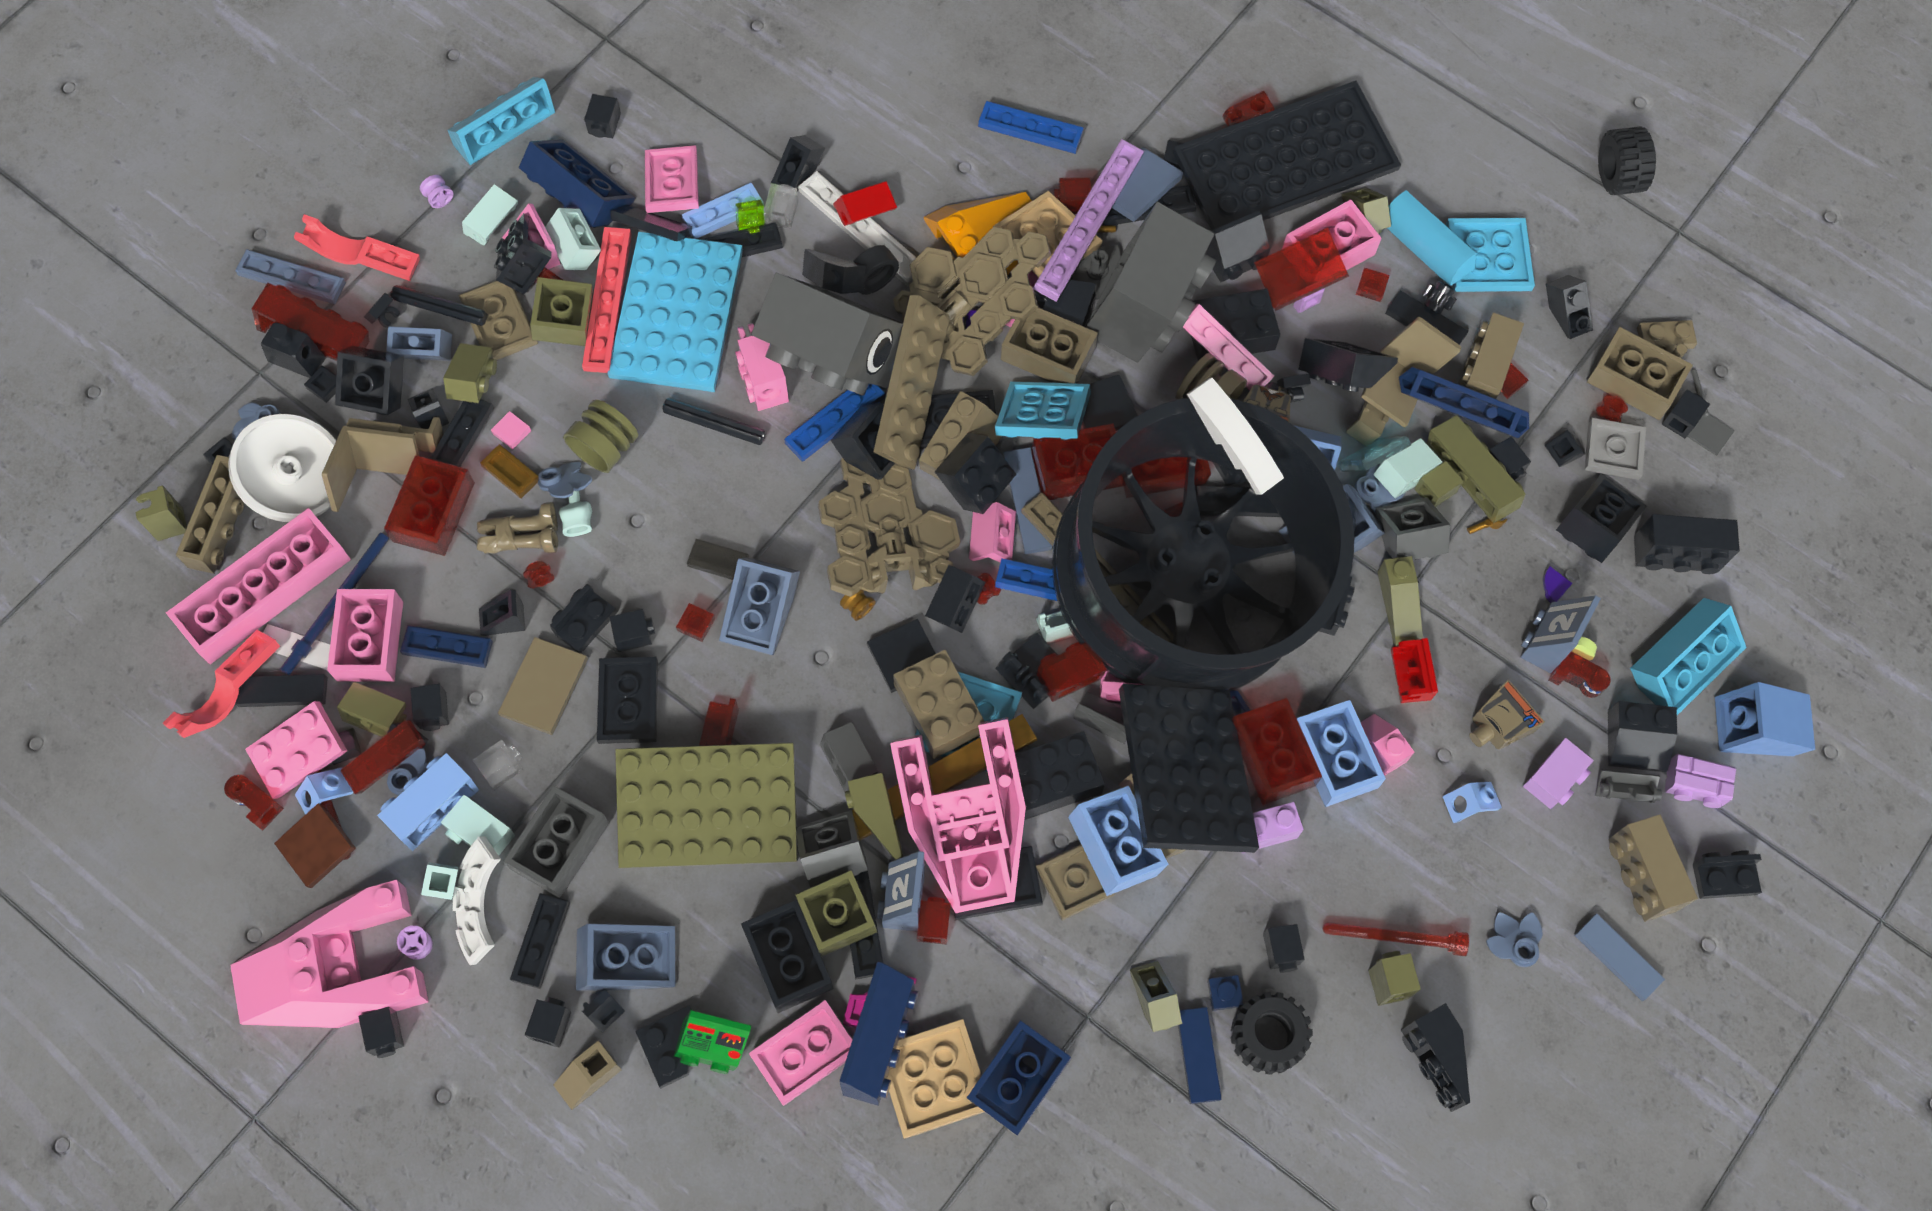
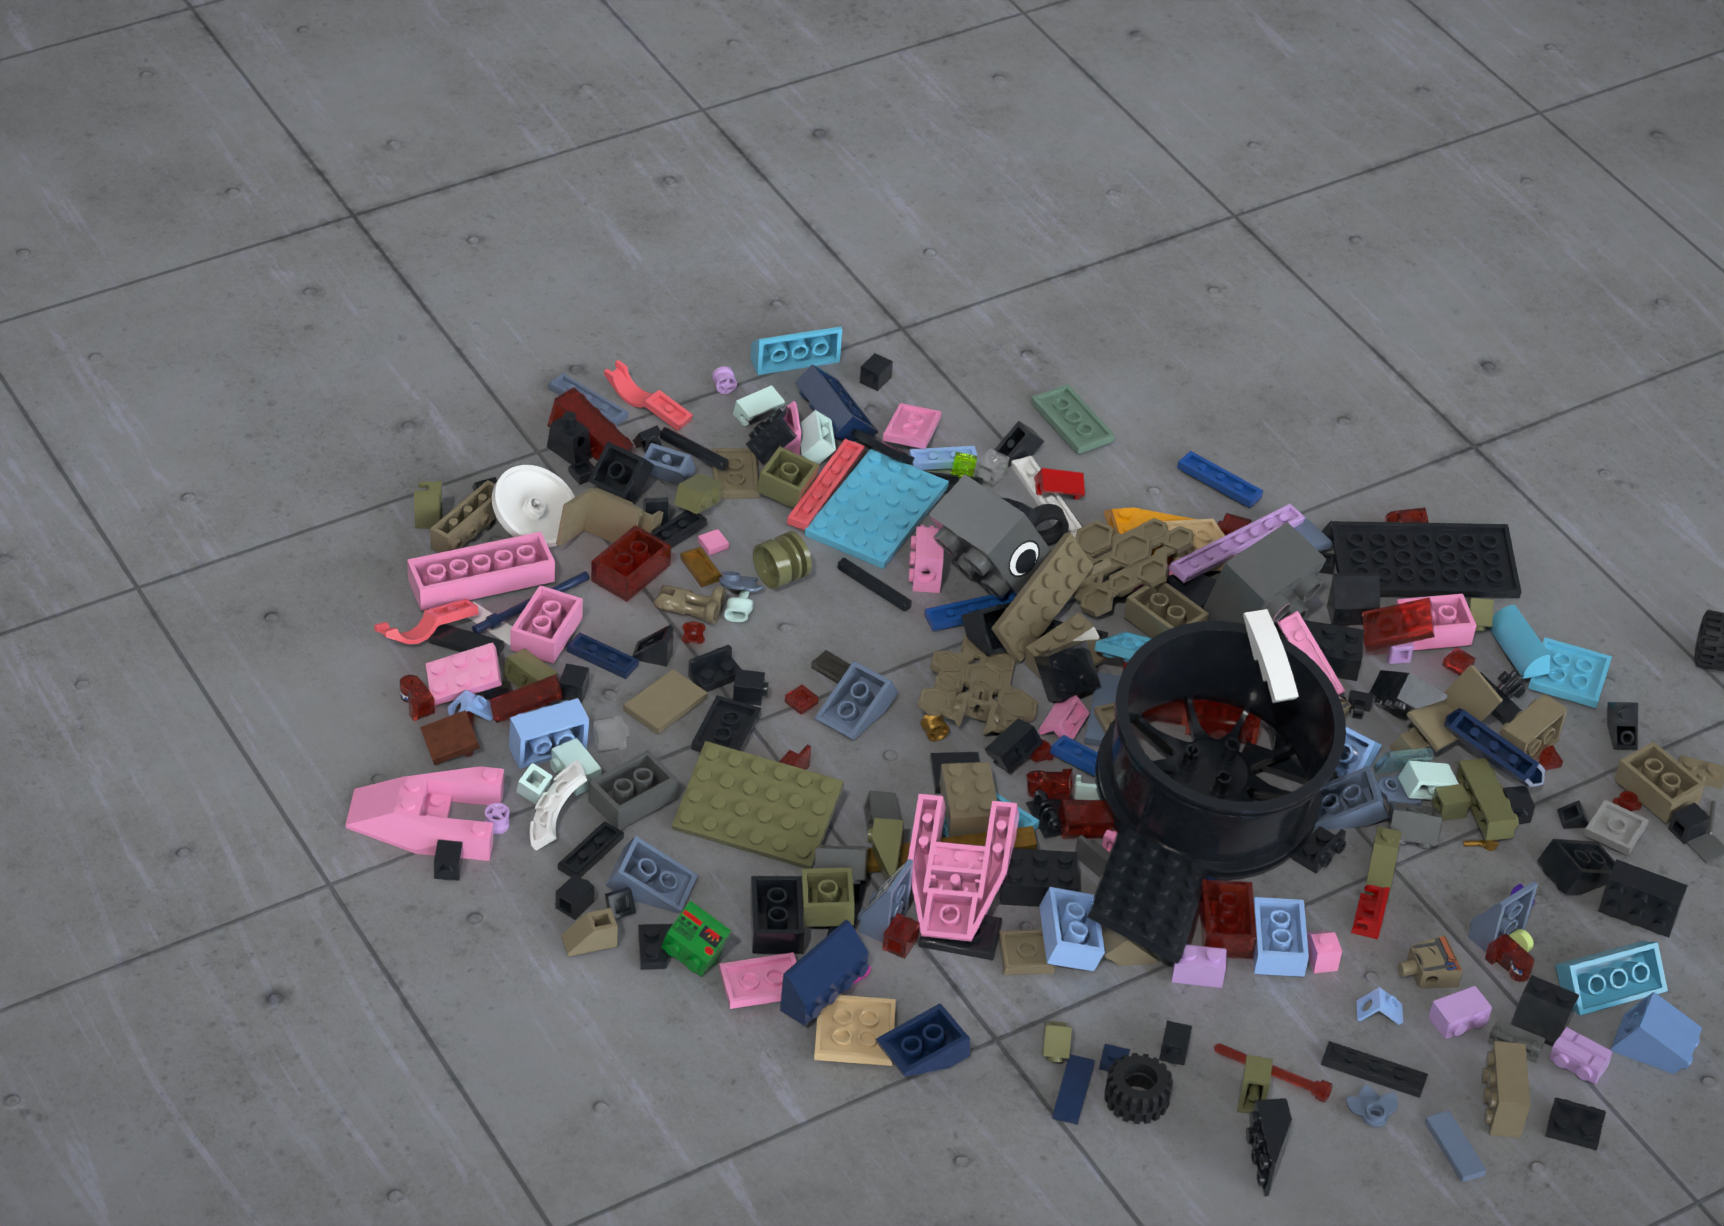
camera: 20 degrees right, 25 degrees down
(842, 102) = (1072, 419): none -> sand green plate
(1014, 636) = (1056, 784): none -> clear red leg
(1497, 886) = (1374, 1069): none -> black tile

